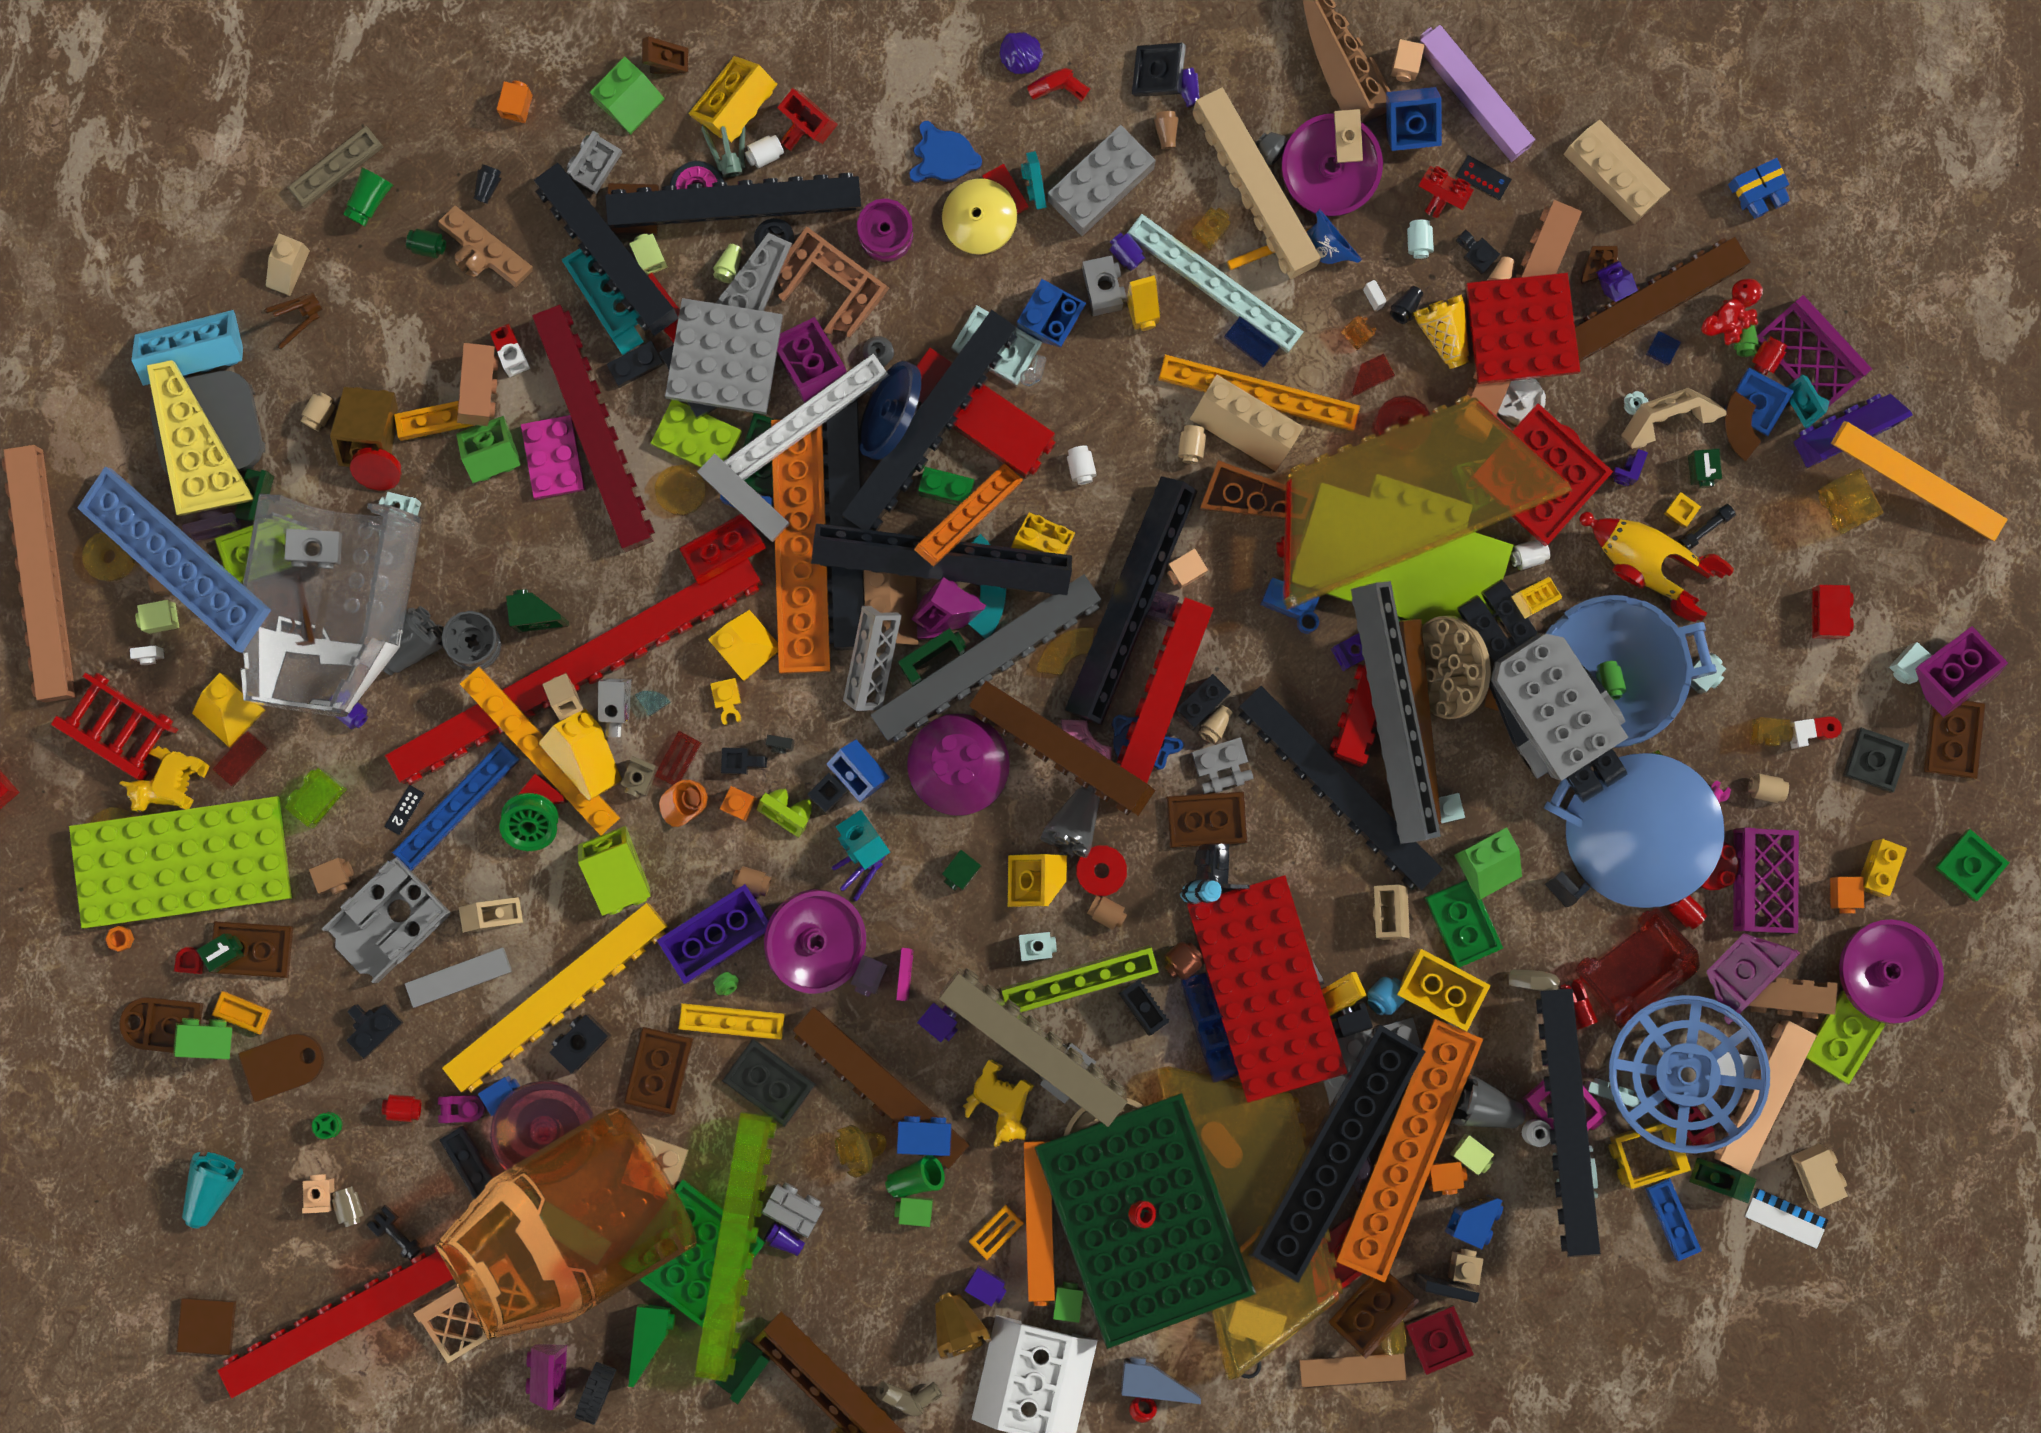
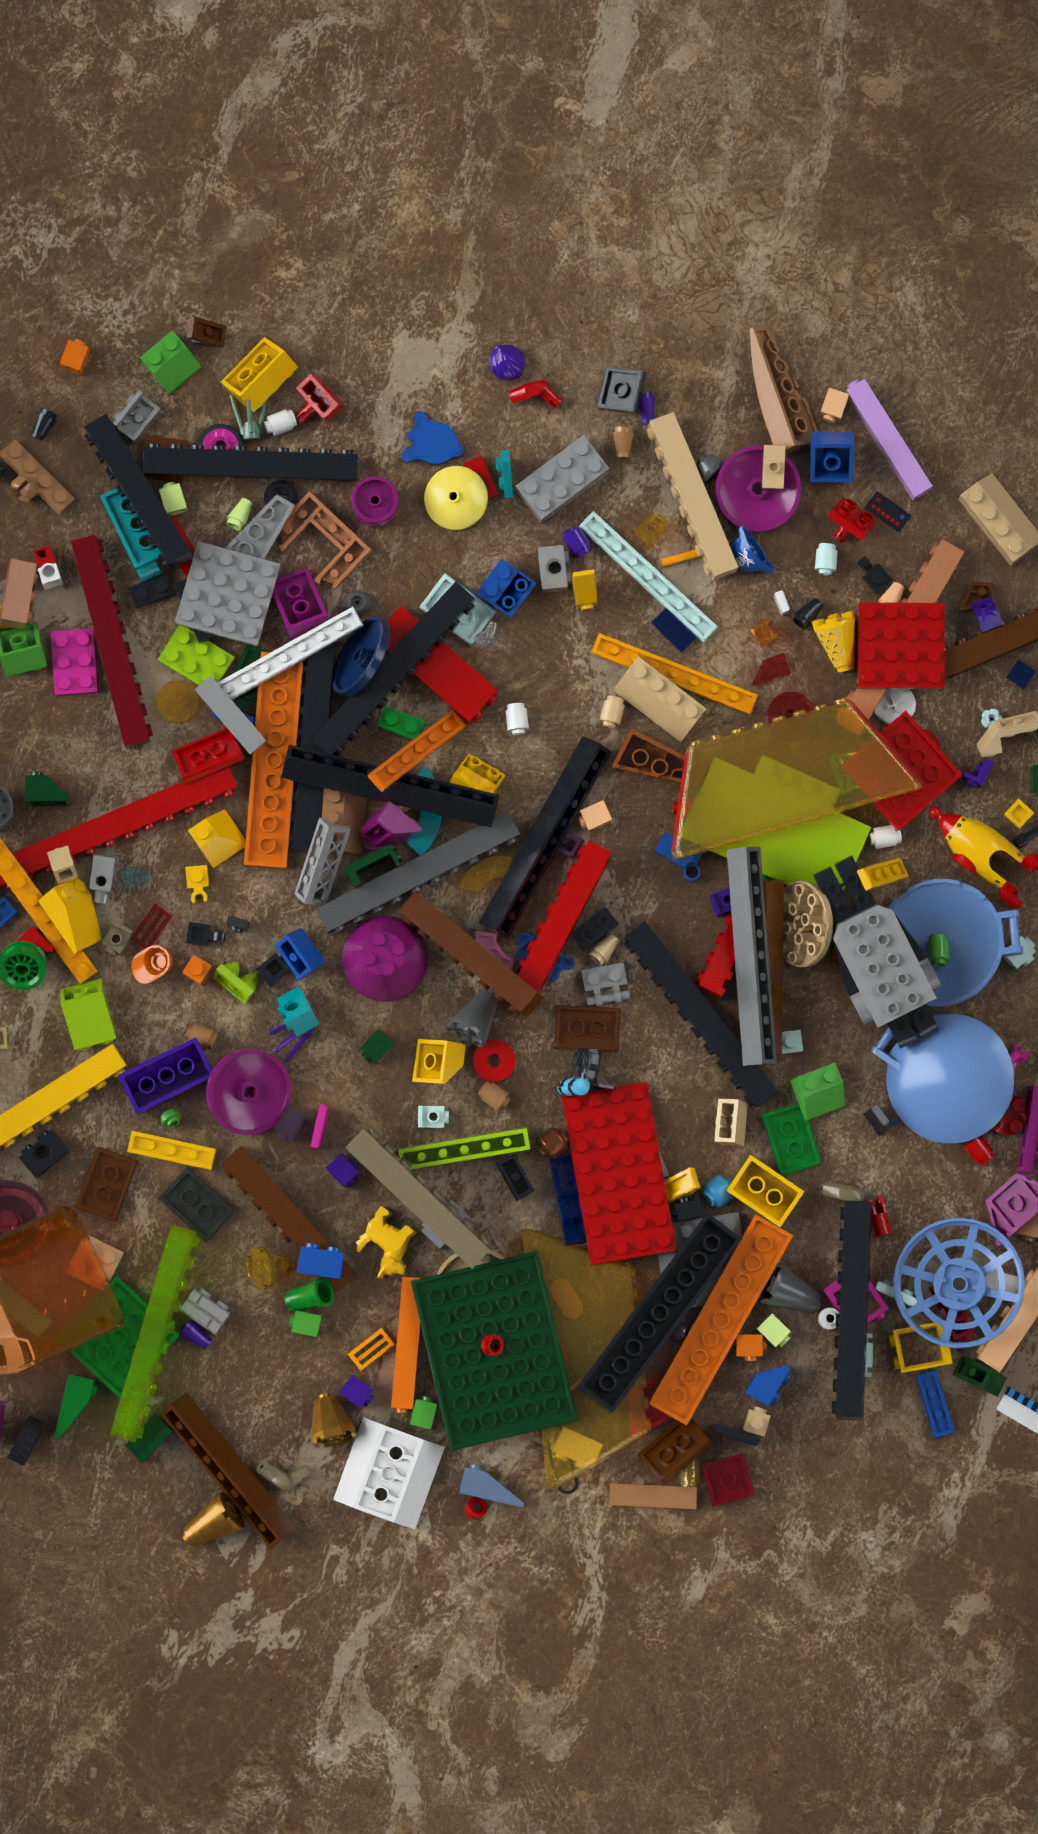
camera: 10 degrees right, 0 degrees up
(1640, 968) = (934, 1193): clear red windscreen -> none

